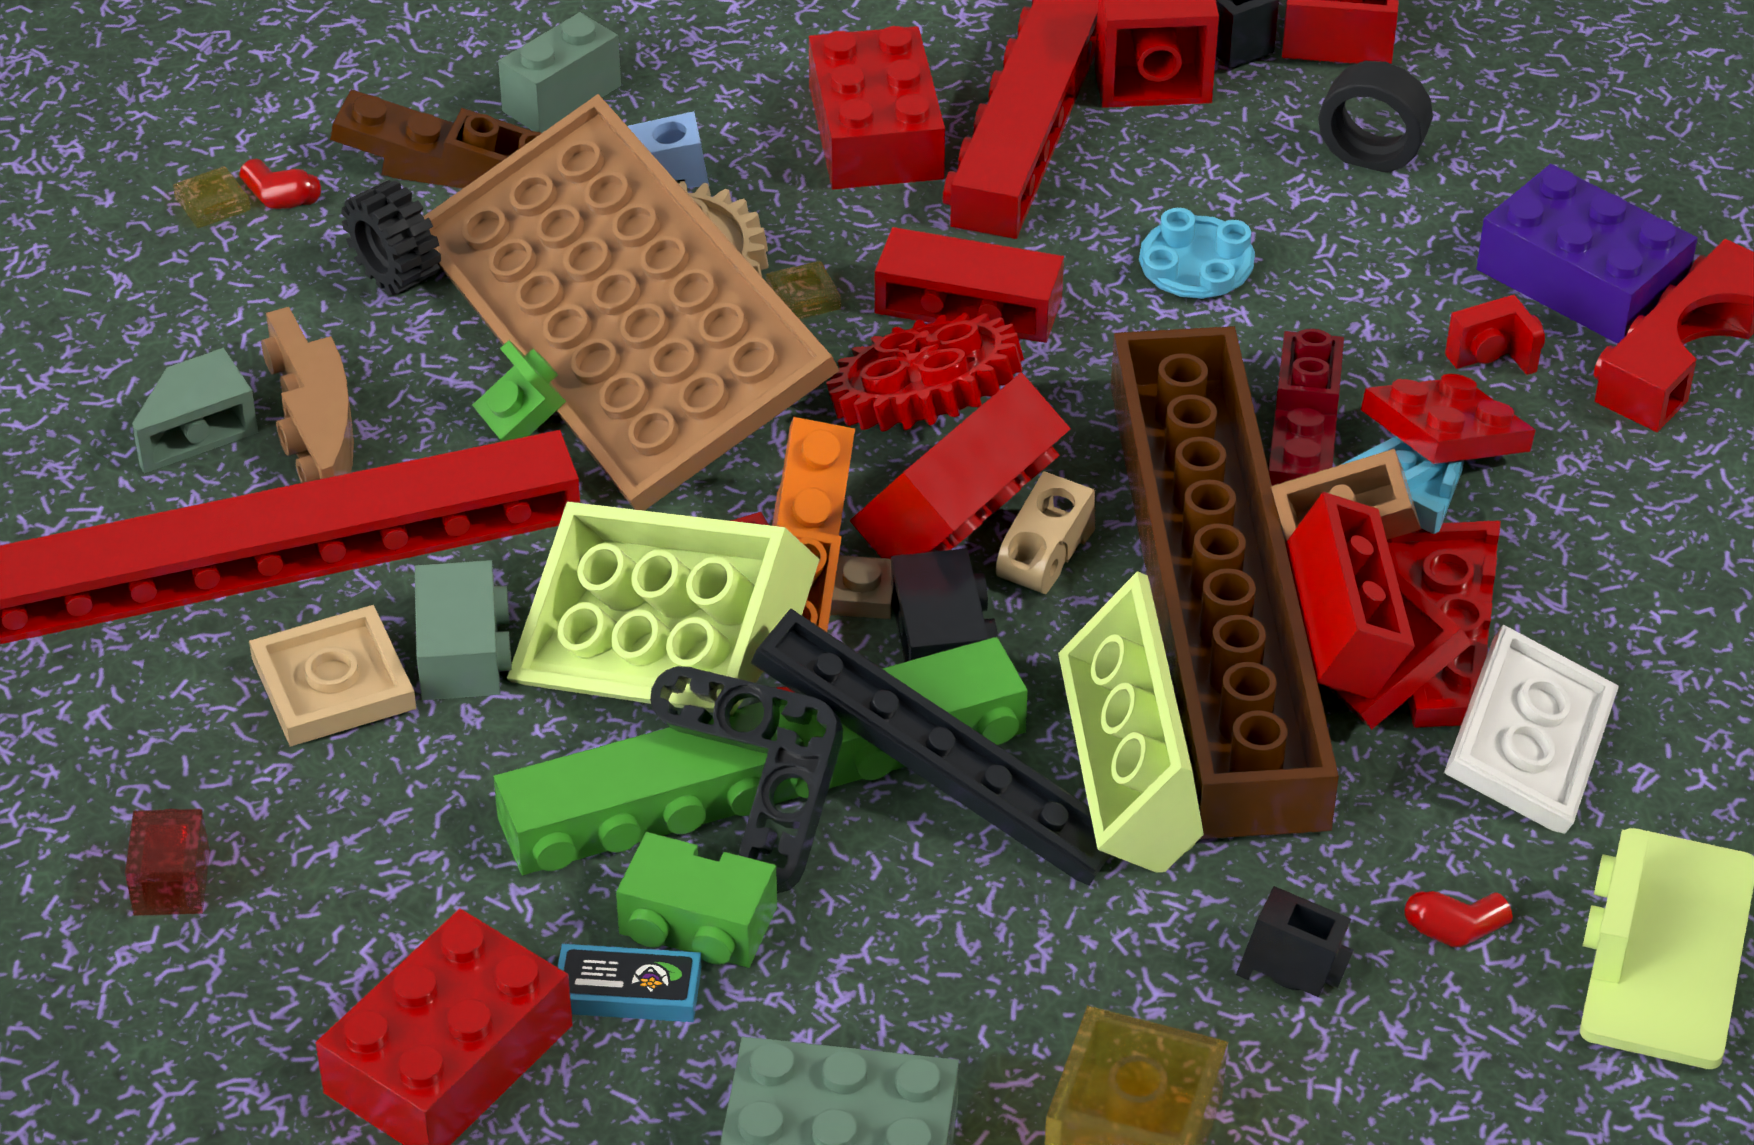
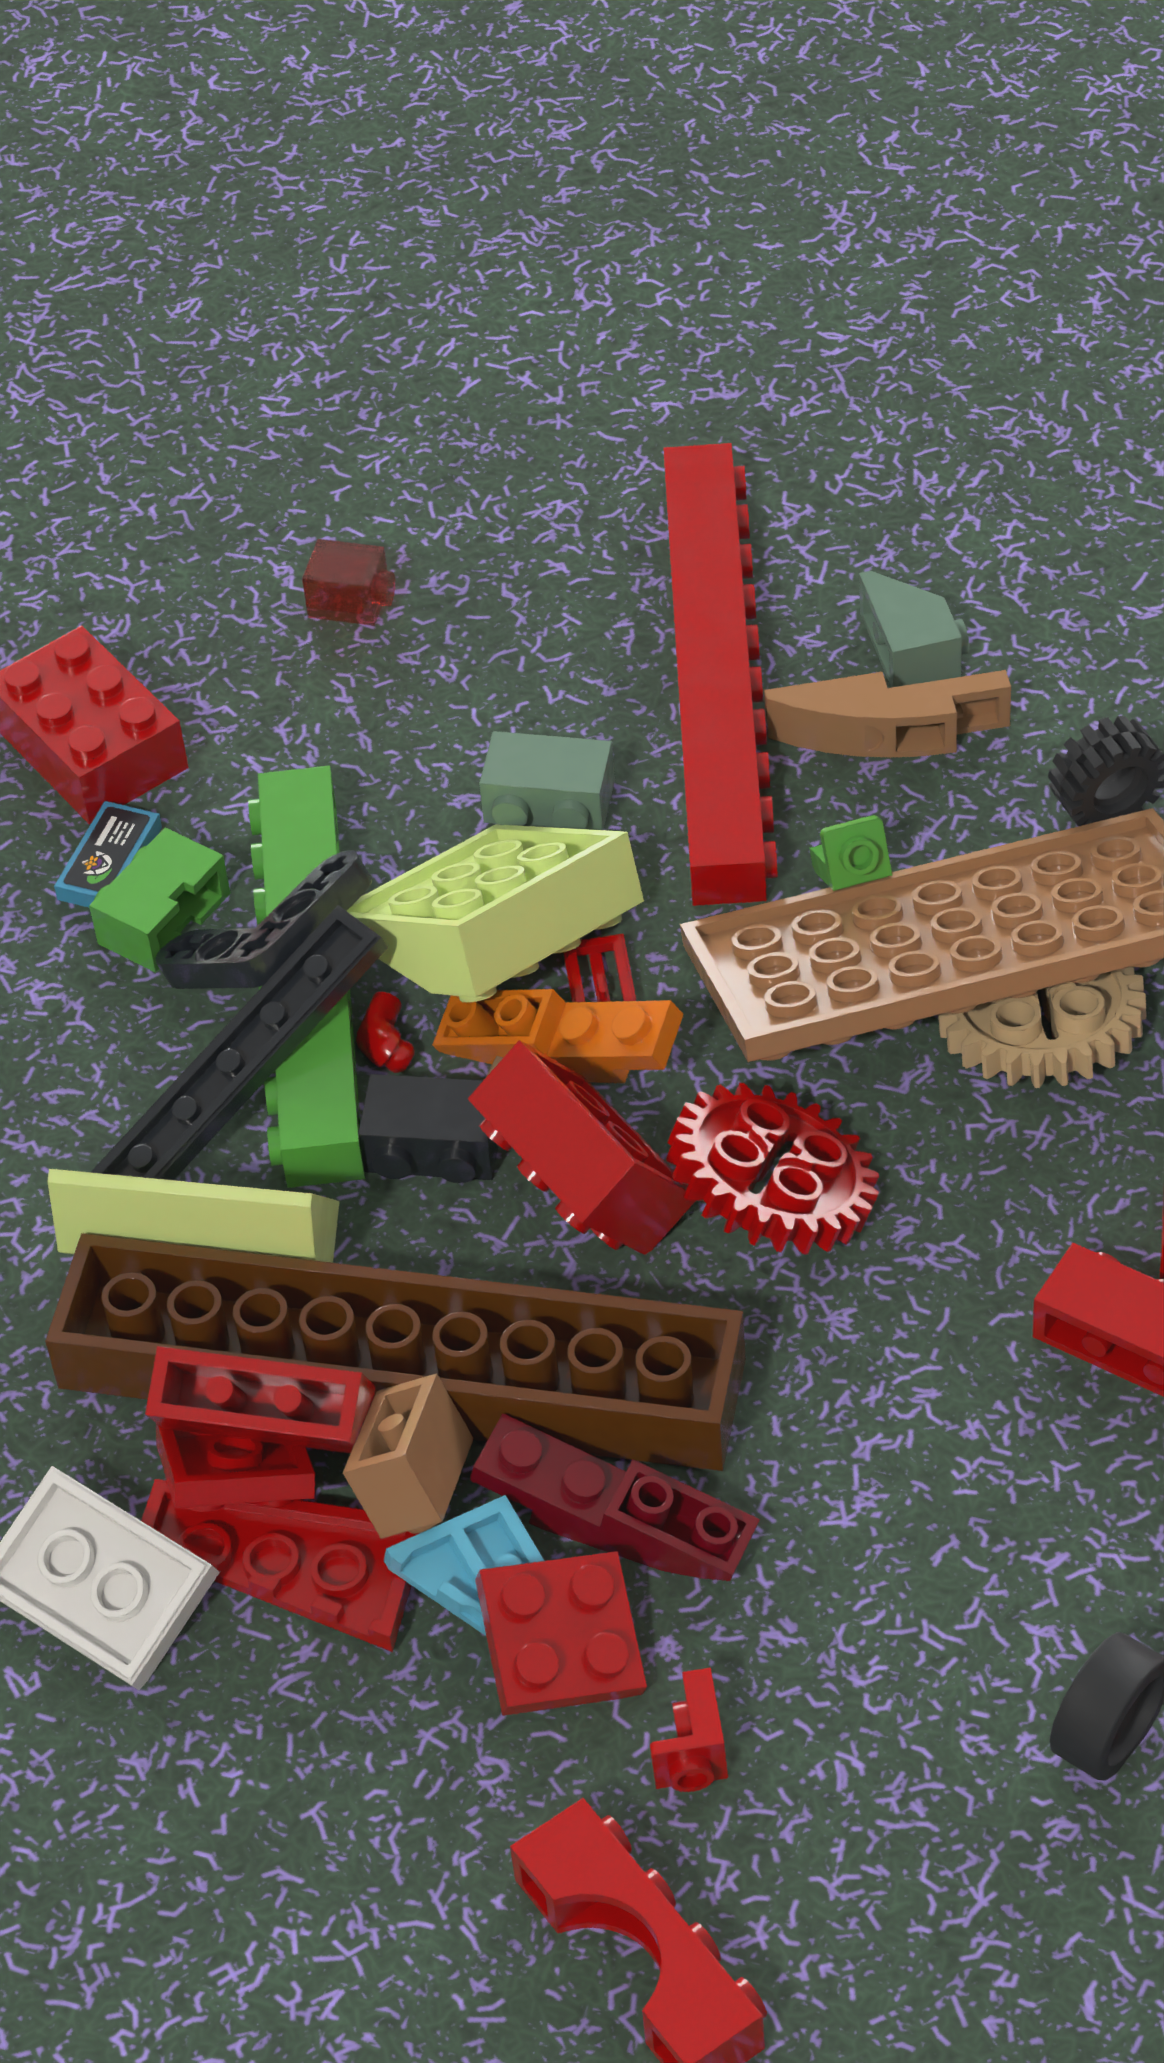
camera: 110 degrees right, 5 degrees up
(332, 675) = (531, 695): tan plate -> none
(805, 289) = (980, 1122): clear yellow tile -> none
(950, 276) = (929, 1252): red brick -> none
(1045, 535) = (520, 1237): tan leg -> none
(1197, 254) = (936, 1485): medium azure dish -> none
(1583, 251) = (809, 1873): dark purple brick -> none

